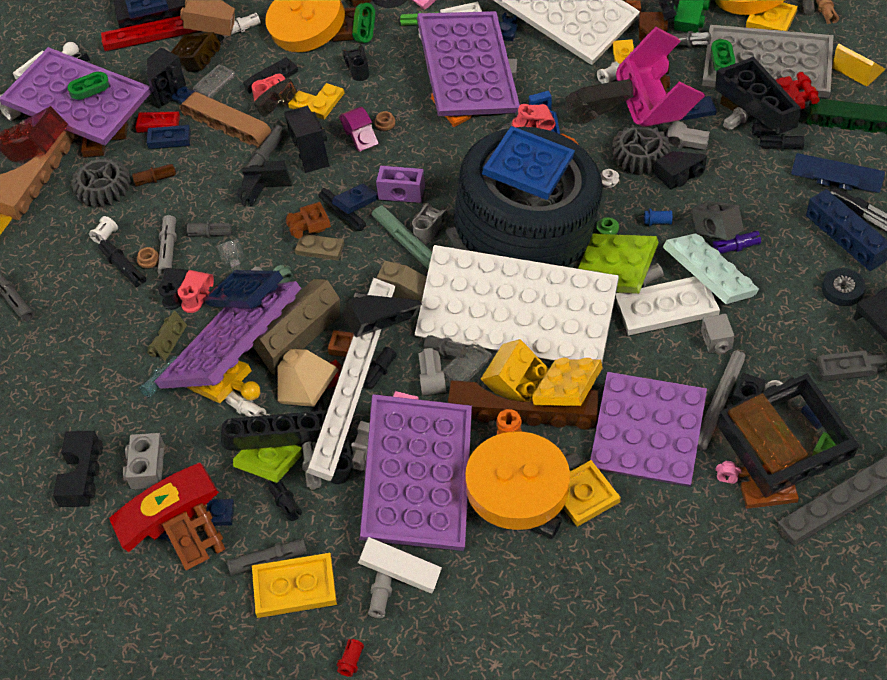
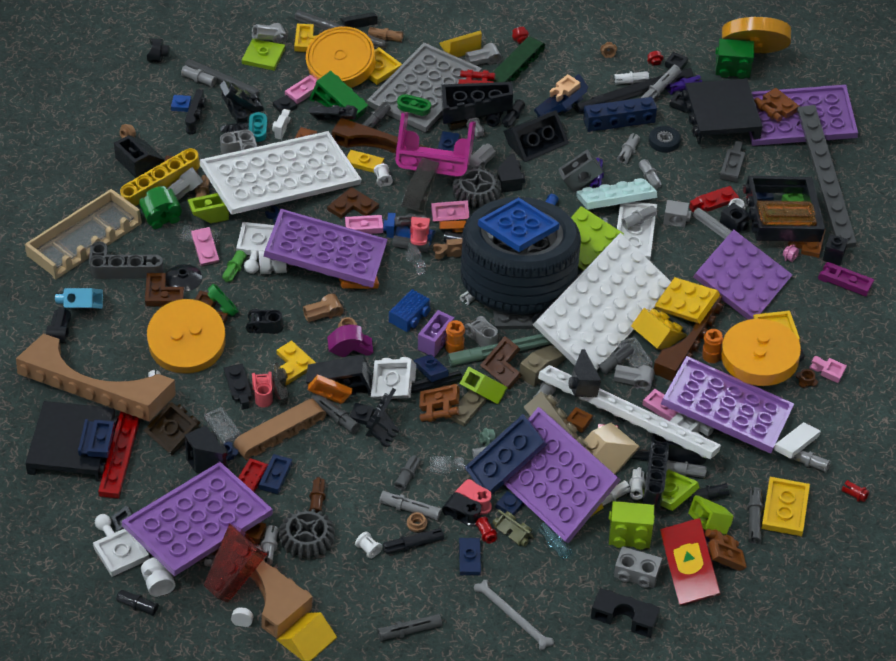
camera: 75 degrees left, 5 degrees down
(26, 410) = (542, 640): none -> light grey piece
(76, 162) = (269, 543): none -> light grey pin
(88, 85) = (202, 499): green plate -> none
(119, 314) = (469, 556): none -> dark blue plate
(157, 314) = (488, 534): none -> red pin
(191, 431) = (631, 525): none -> lime brick
(198, 322) = (509, 503): none -> dark blue plate
(240, 509) = (711, 514): none -> lime slope
(283, 131) = (329, 389): none -> orange plate
(324, 171) = (393, 374): none -> white plate
(347, 243) = (483, 385): none -> lime slope
(389, 247) = (498, 363): none -> reddish brown plate
(398, 97) = (328, 306): none -> medium nougat piece
(402, 200) = (455, 336): none -> orange piece
(428, 155) = (409, 310): none -> blue brick
(522, 545) = (810, 375): none -> reddish brown plate
(529, 82) = (367, 224): none -> bright pink plate
(546, 573) = (830, 369): none -> bright pink plate
(560, 119) = (406, 220): none -> dark grey axle
(561, 66) = (352, 200): none -> reddish brown plate
(591, 140) = (450, 210): none -> bright pink plate
(678, 296) = (639, 217): none -> light grey axle
(720, 549) = (846, 278): none -> magenta plate
(756, 171) = (536, 136): none -> black slope
(760, 517) = (835, 249): none -> black brick
(769, 363) = (713, 199): none -> red hinge
(771, 290) = (649, 173): none -> light grey axle
(801, 258) = (628, 148): none -> light grey pin
(846, 164) = (565, 86): none -> light nougat plate
(856, 90) = (488, 54): none -> light grey piece

